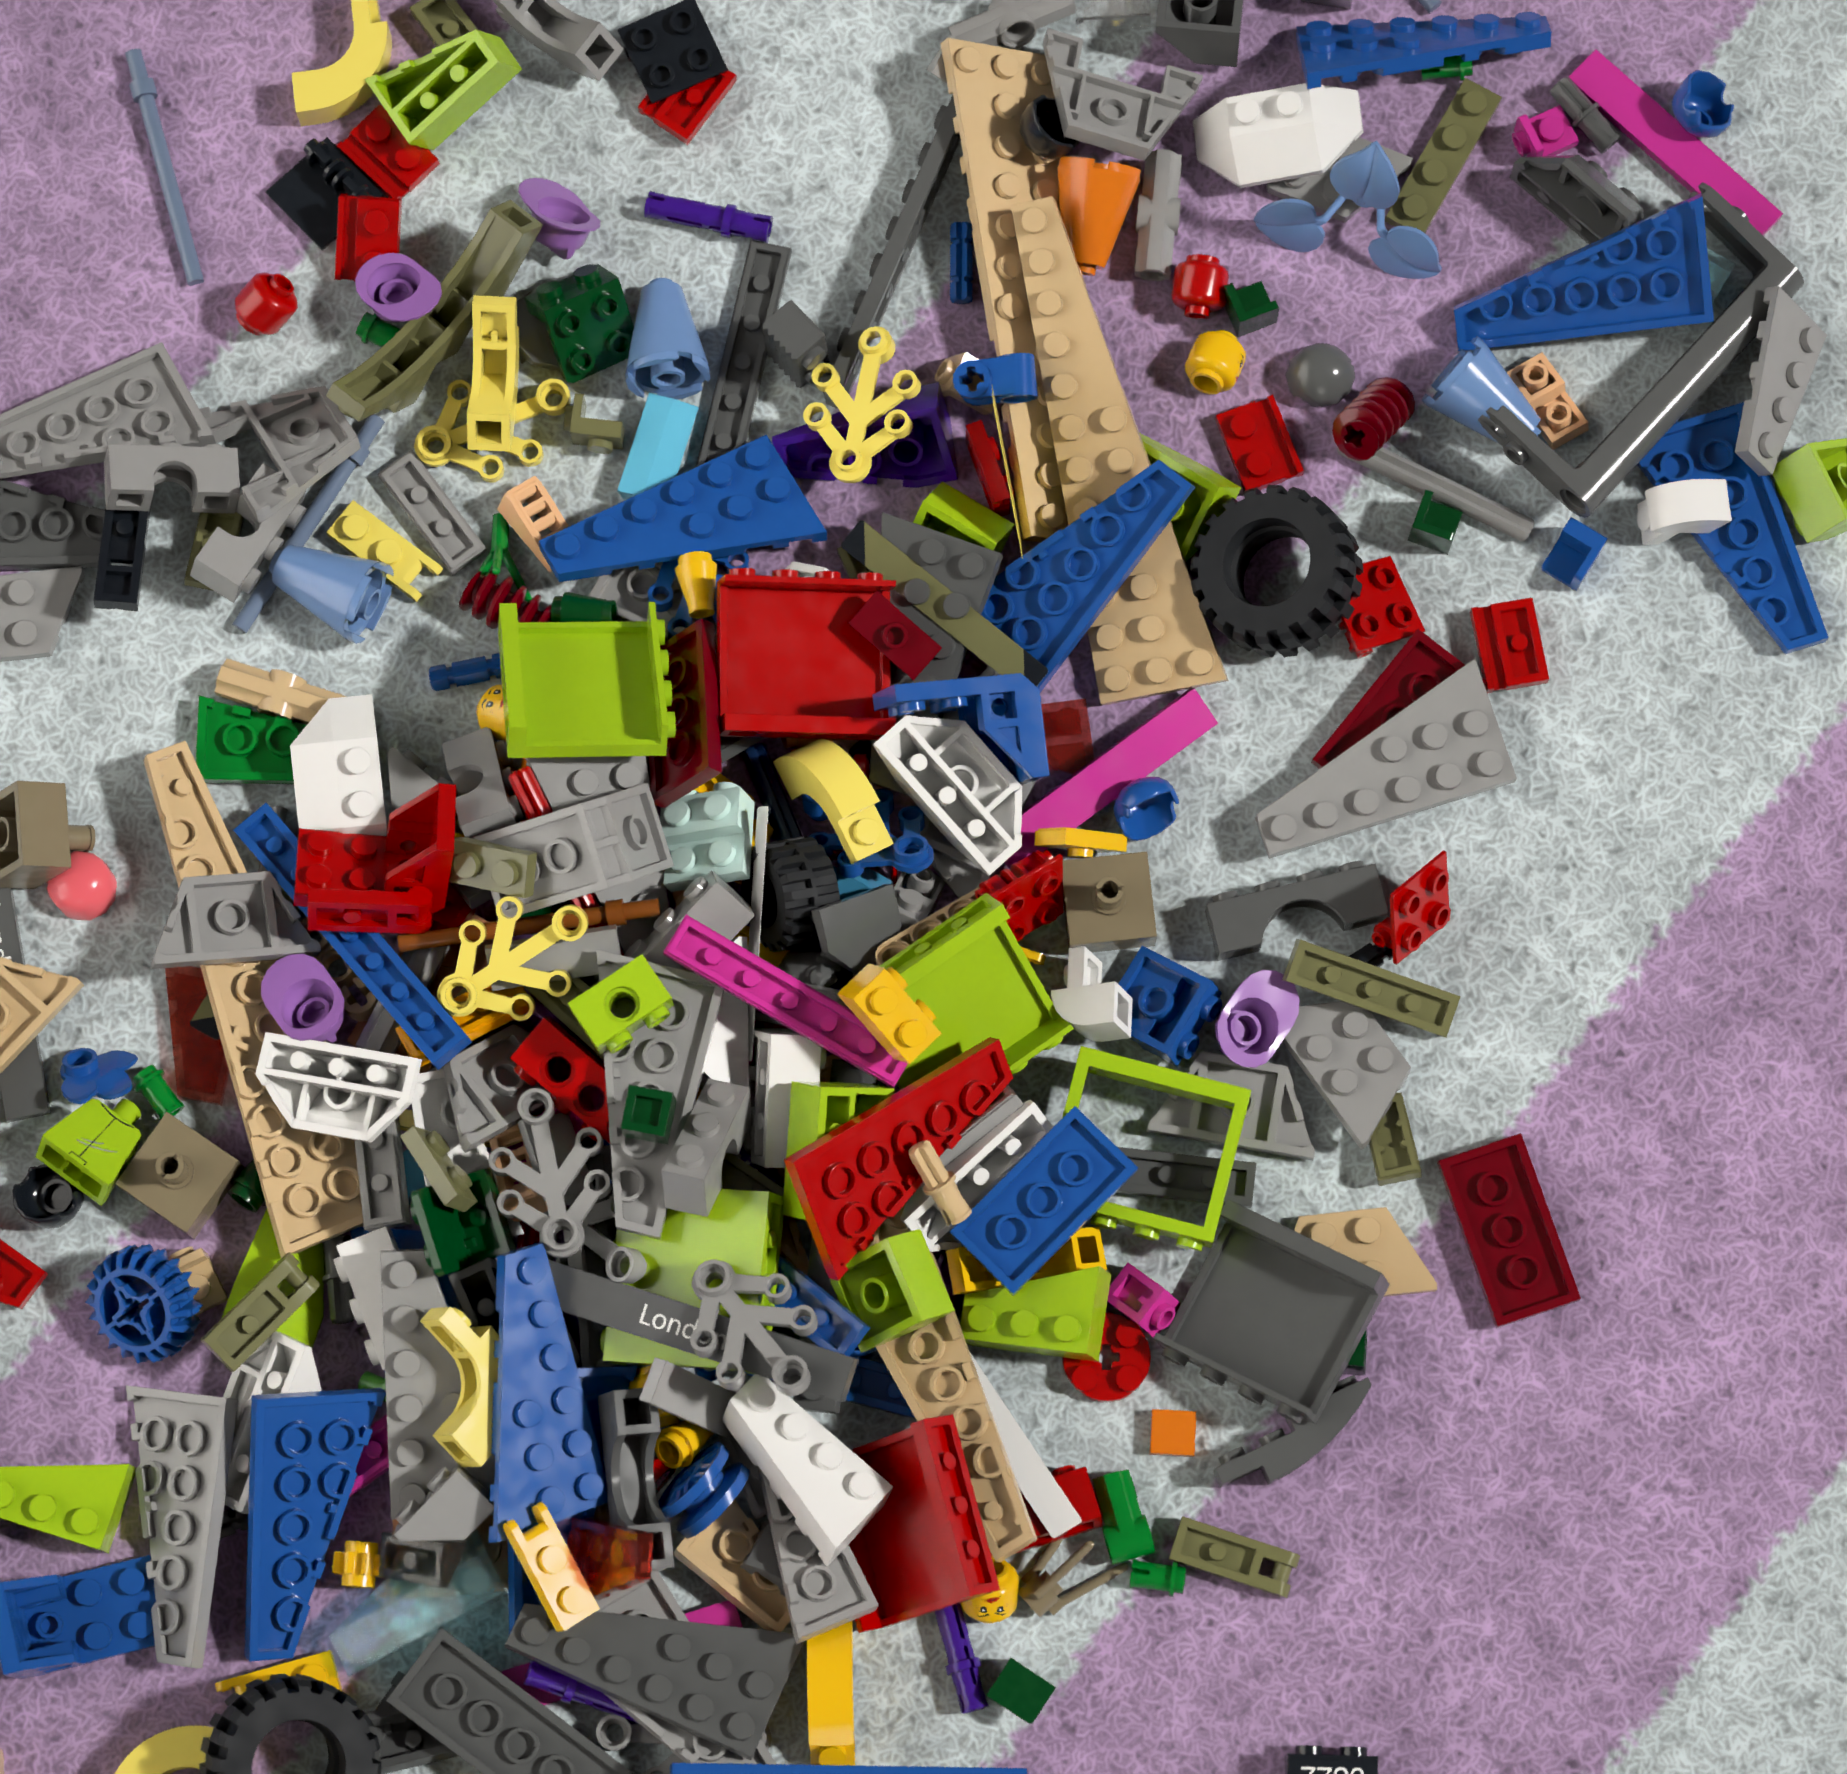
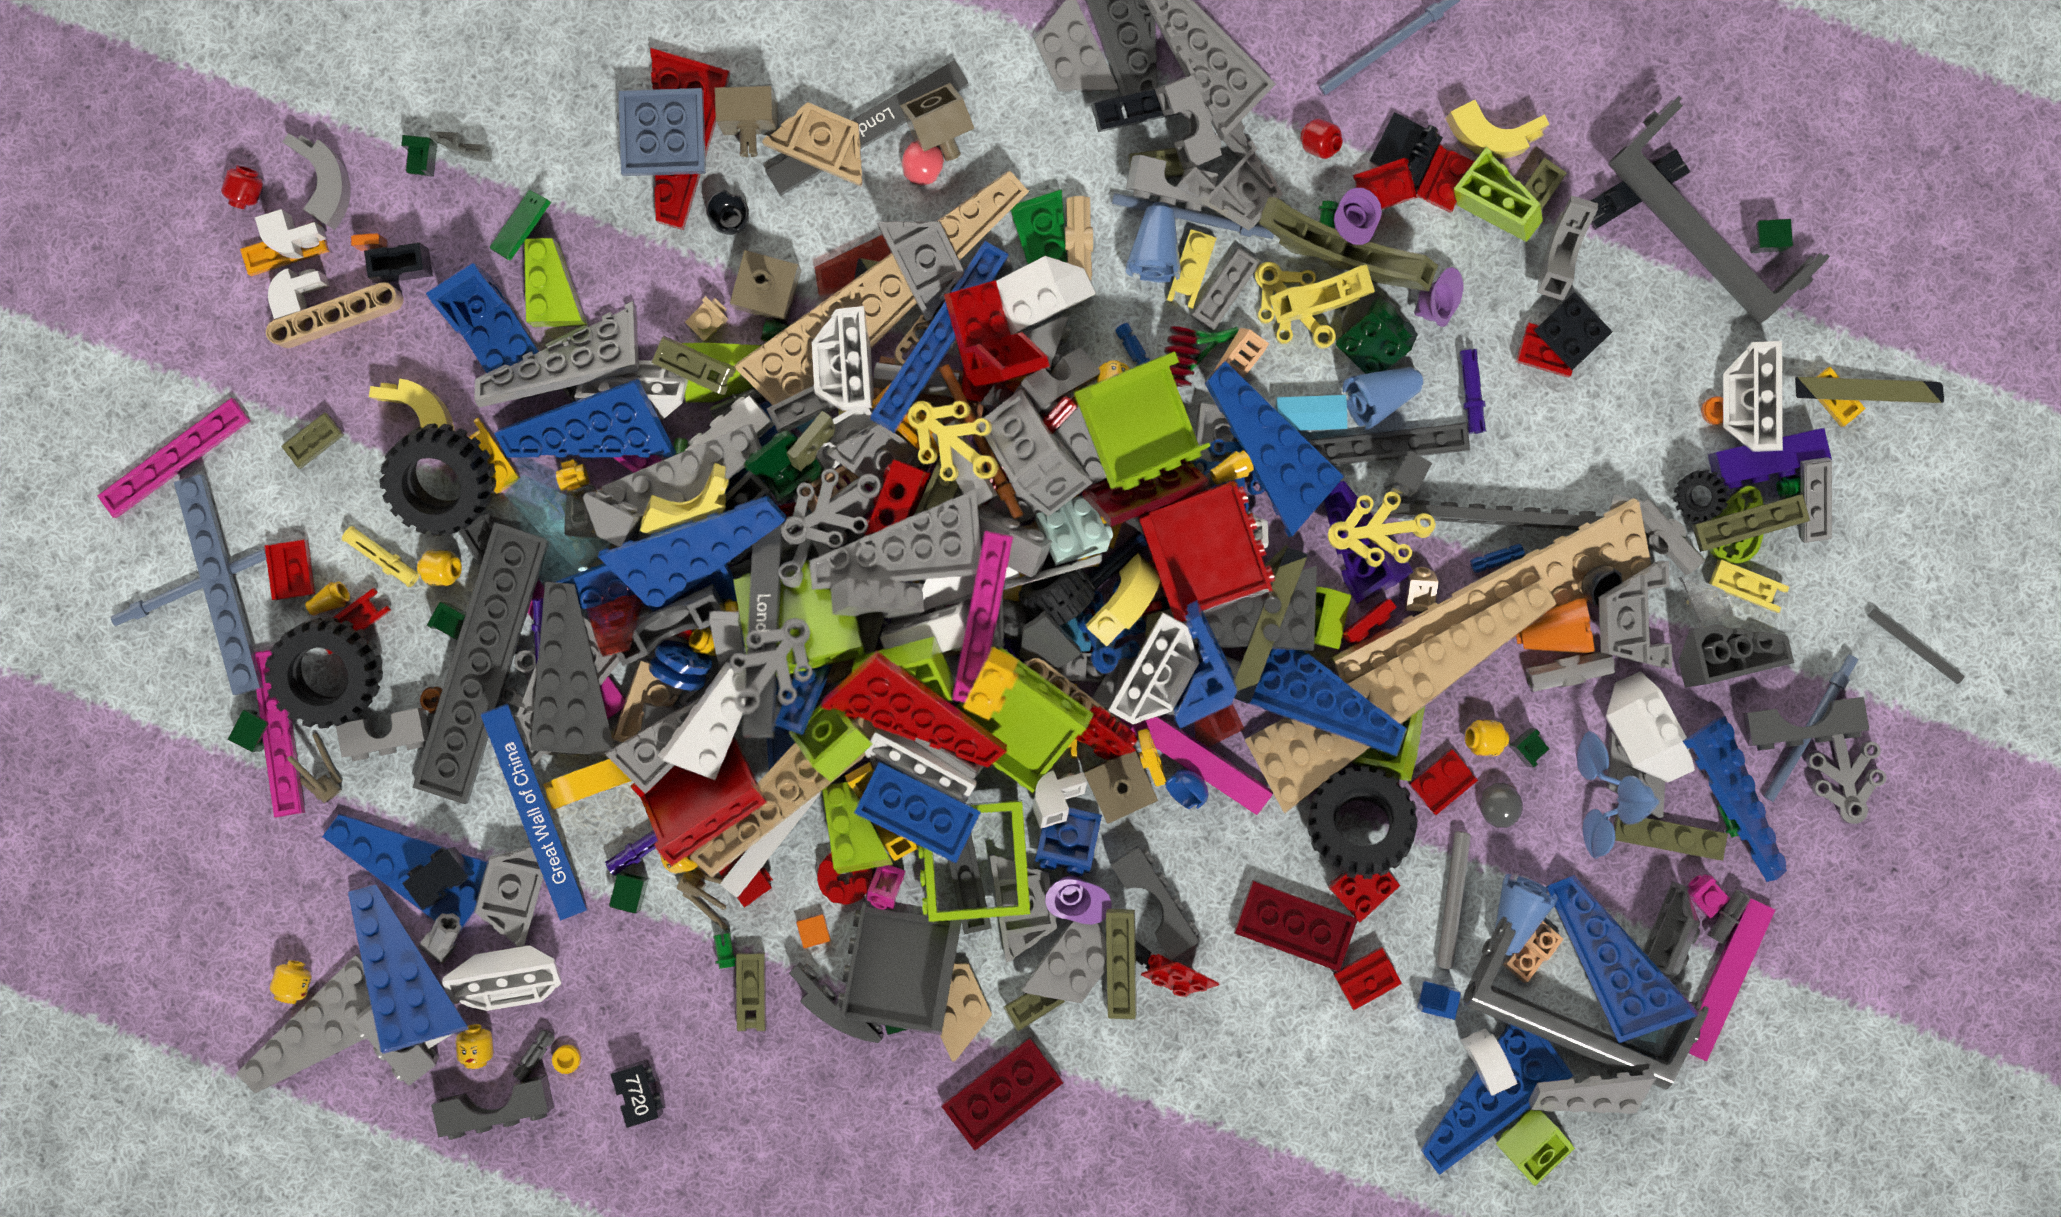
camera: 65 degrees right, 10 degrees up
(93, 1146) = (764, 228): lime torso -> none
(96, 1075) = (808, 214): blue plate -> none
(127, 1281) = (680, 293): blue gear -> none
(157, 1091) = (812, 254): green pin -> none
(303, 998) = (891, 321): medium lavender piece -> none
(370, 910) = (955, 342): red plate -> none
(493, 867) = (1005, 407): olive plate -> none
(552, 1570) = (595, 595): yellow hinge -> none
(582, 608) = (1193, 403): dark green cone -> none
(596, 434) = (1308, 373): olive bracket -> none
(632, 981) = (960, 520): lime brick -> none
(648, 1114) = (880, 557): dark green panel -> none
(895, 635) = (1239, 601): dark red plate -> none
(939, 1183) = (903, 747): tan axle -> none
(1007, 471) = (1365, 636): light yellow sticker -> none
(1010, 375) = (1427, 613): blue piece -> none
(1124, 1527) = (748, 920): green piece -> none
(1199, 286) = (1532, 712): red head -> none
(1373, 418) = (1482, 849): dark red piece -> none
(1415, 761) = (1273, 946): light grey wing -> none
(1434, 525) = (1428, 908): dark green panel -> none
(1700, 105) = (1760, 988): blue hair -> none

